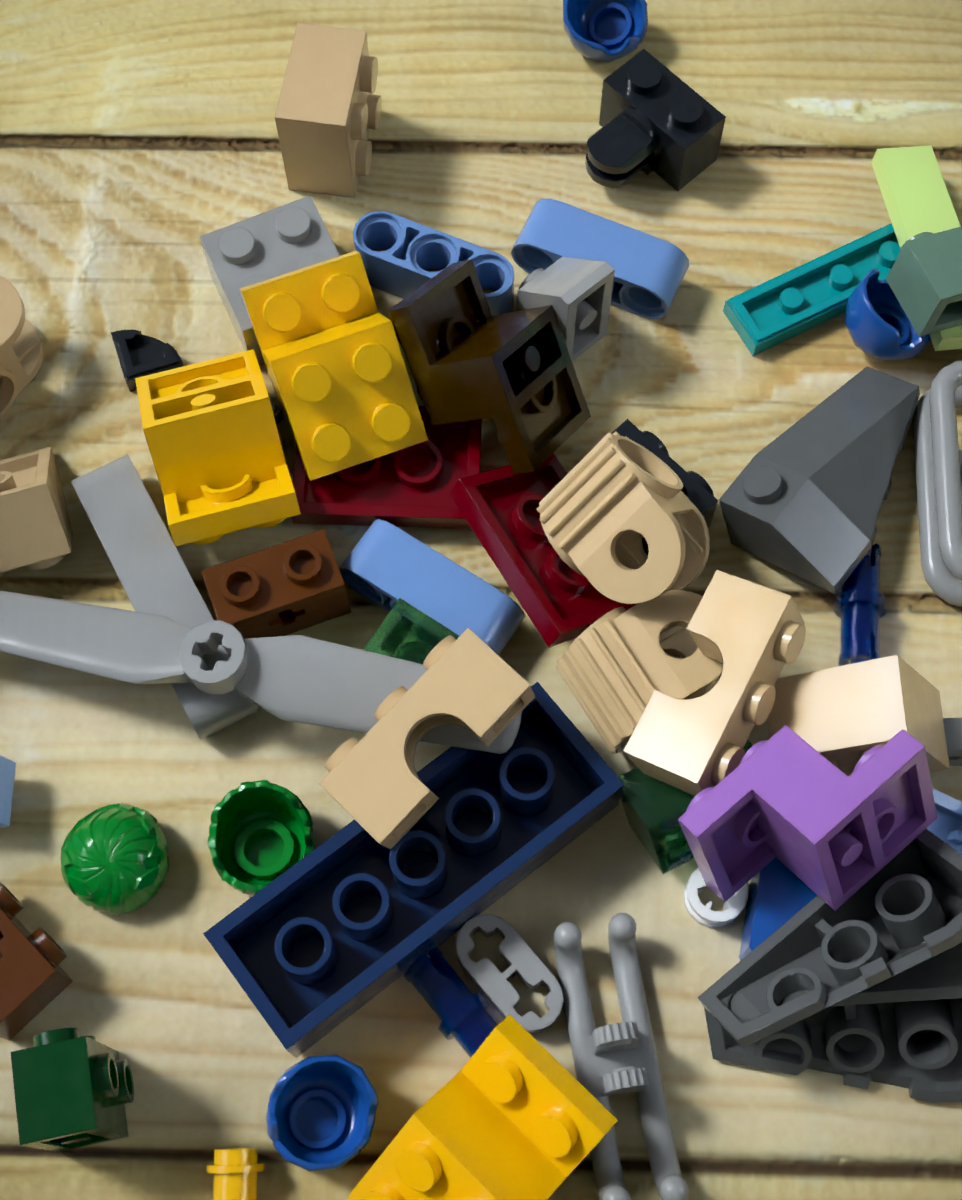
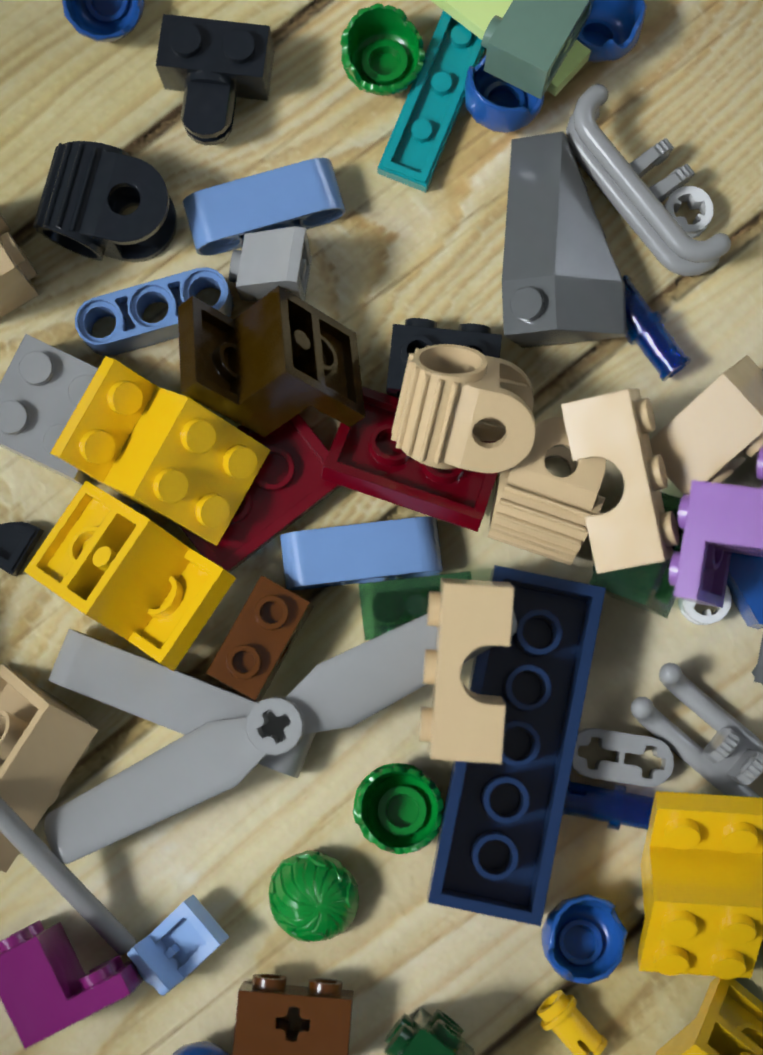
camera: 35 degrees left, 15 degrees up
(464, 150) = (89, 191): none -> black piece
(808, 210) = (382, 50): none -> green hair

